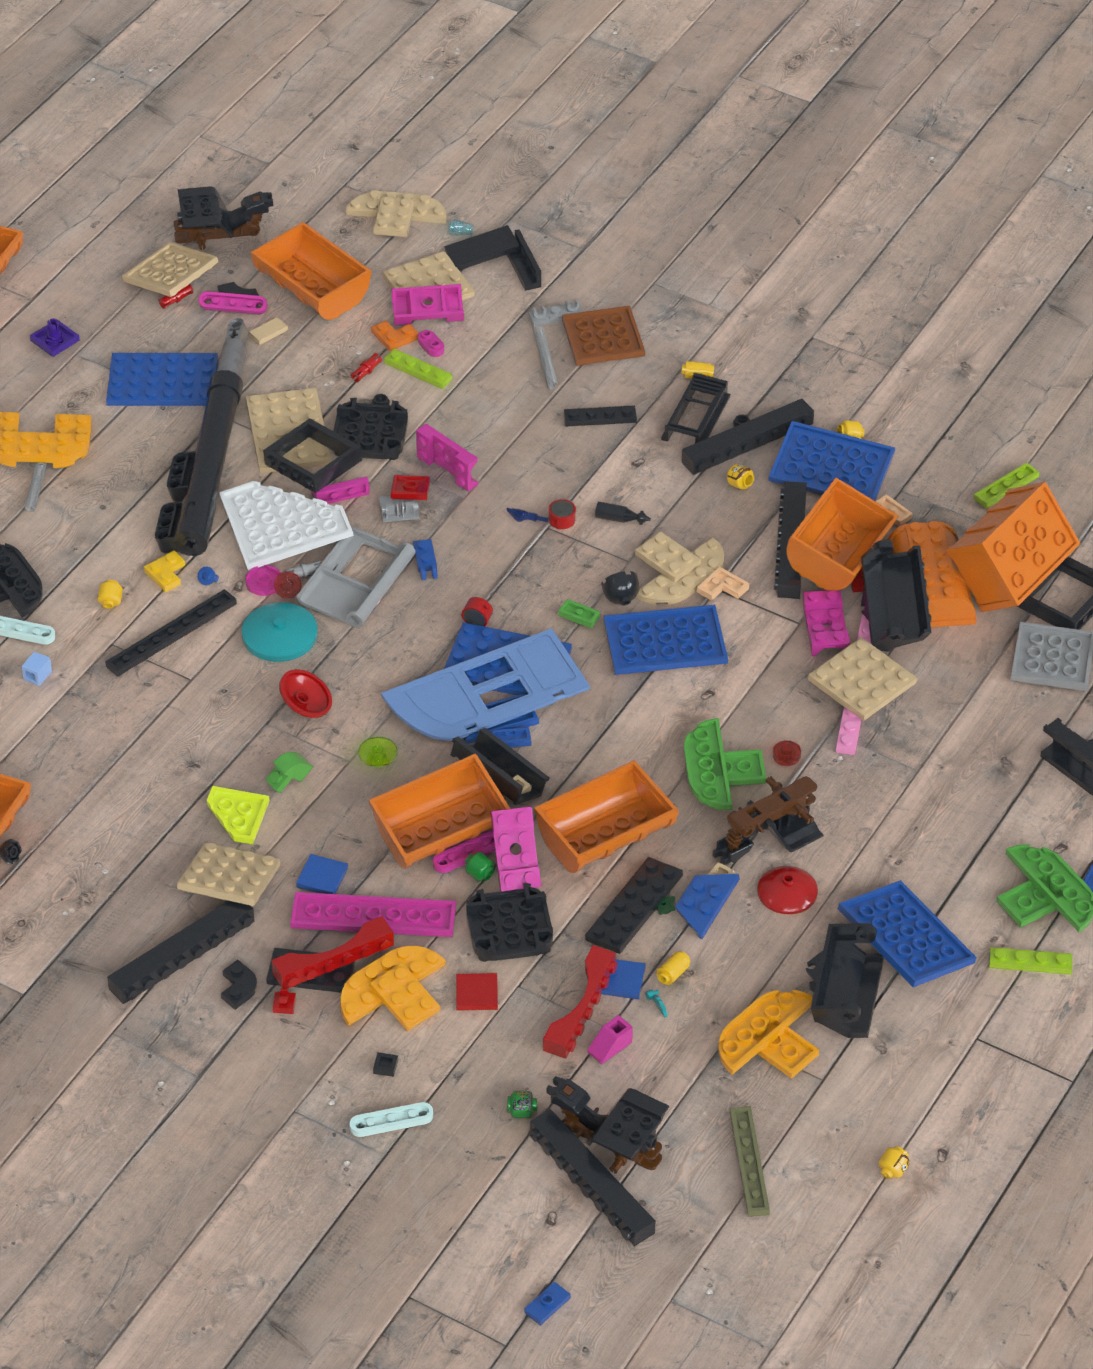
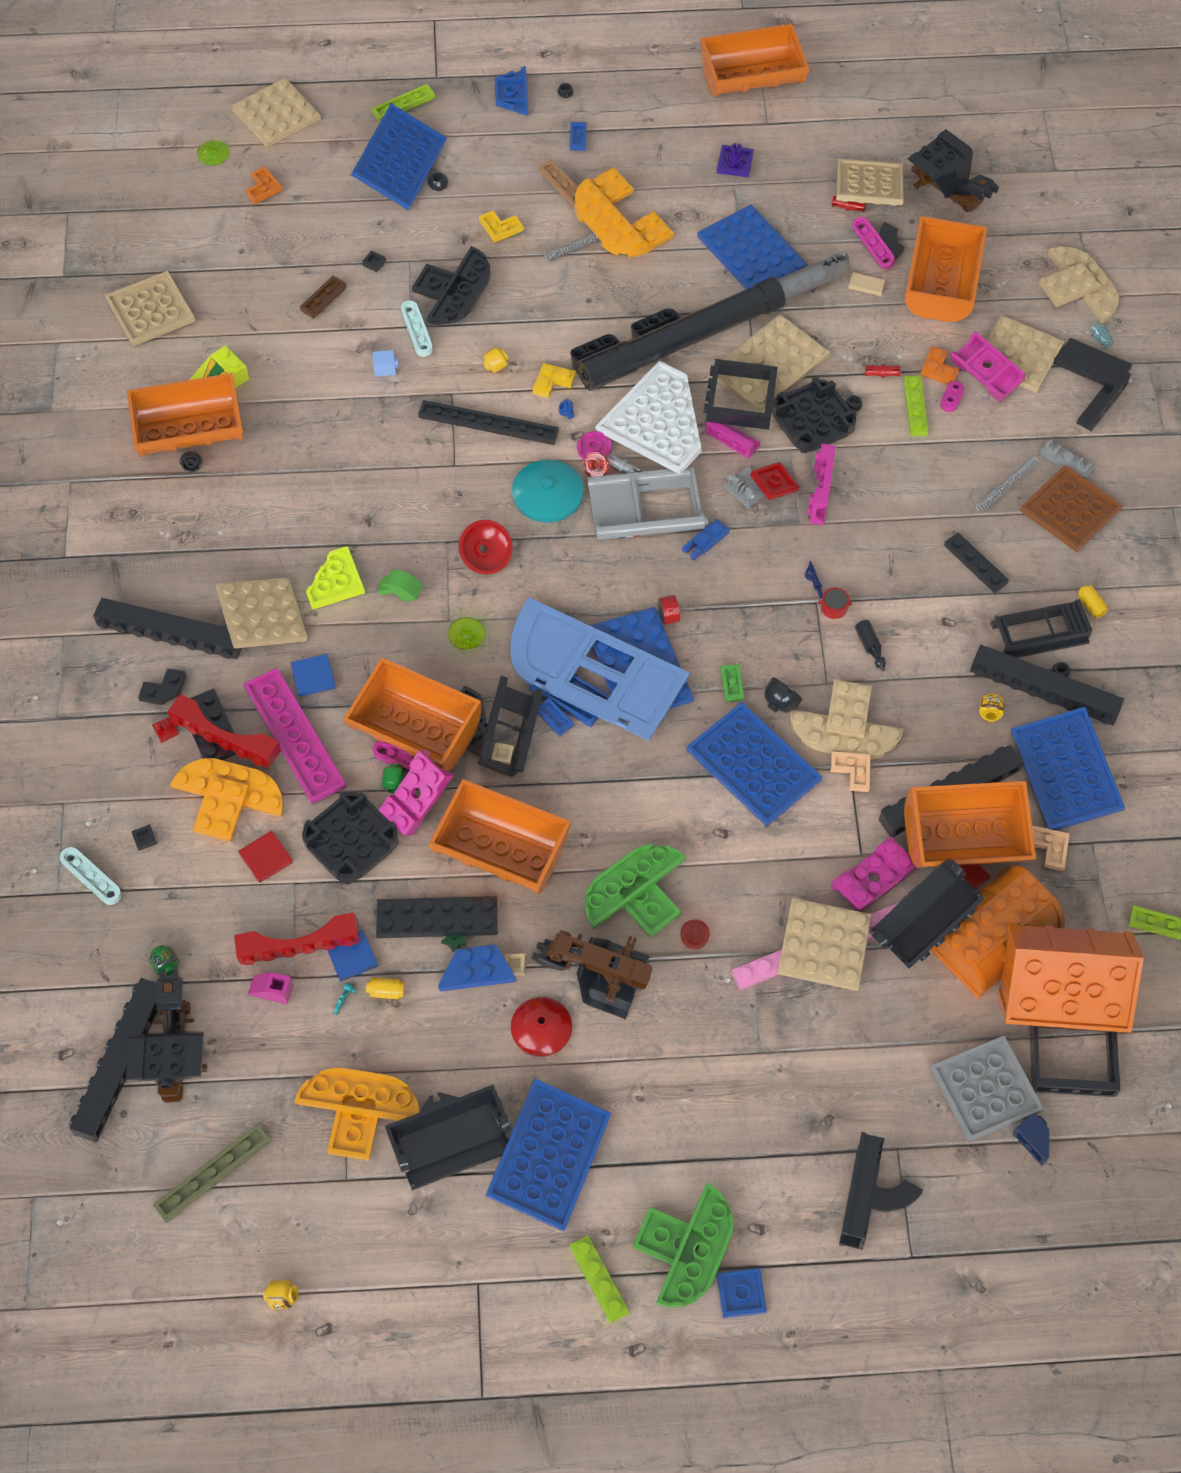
camera: 55 degrees right, 15 degrees up
(851, 428) = (1122, 760): yellow head -> none

